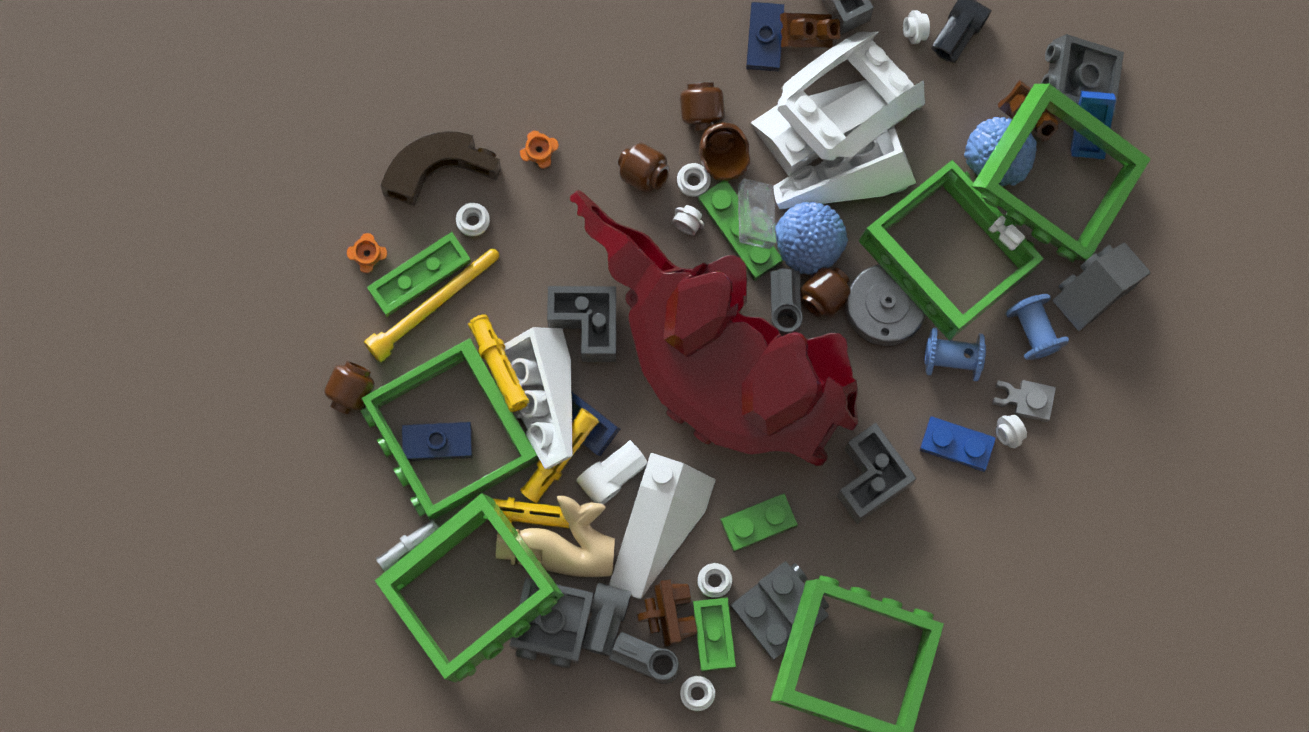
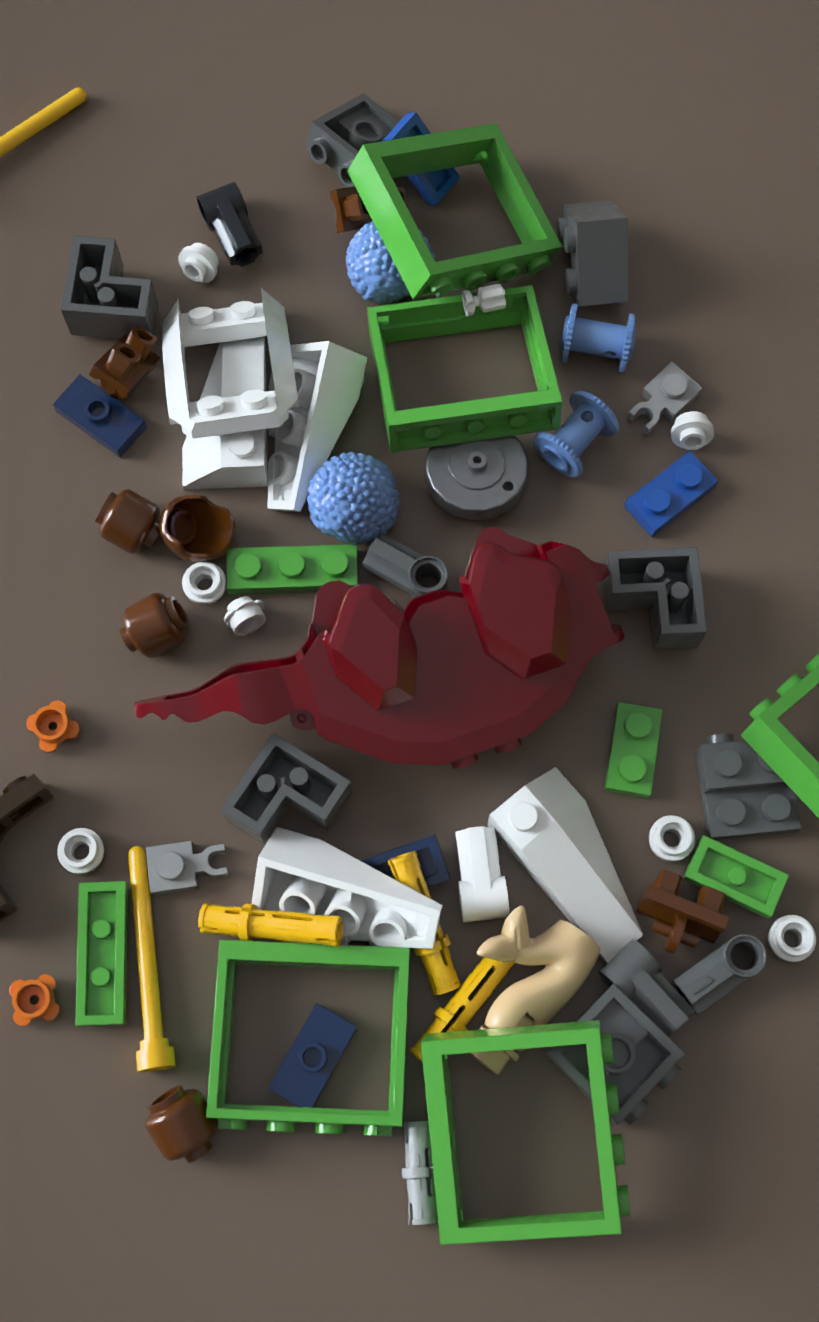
camera: 55 degrees left, 5 degrees down
(501, 285) = (176, 866): none -> light grey plate
(756, 213) = (289, 538): clear plate -> none
(825, 292) = (423, 520): reddish brown head -> none

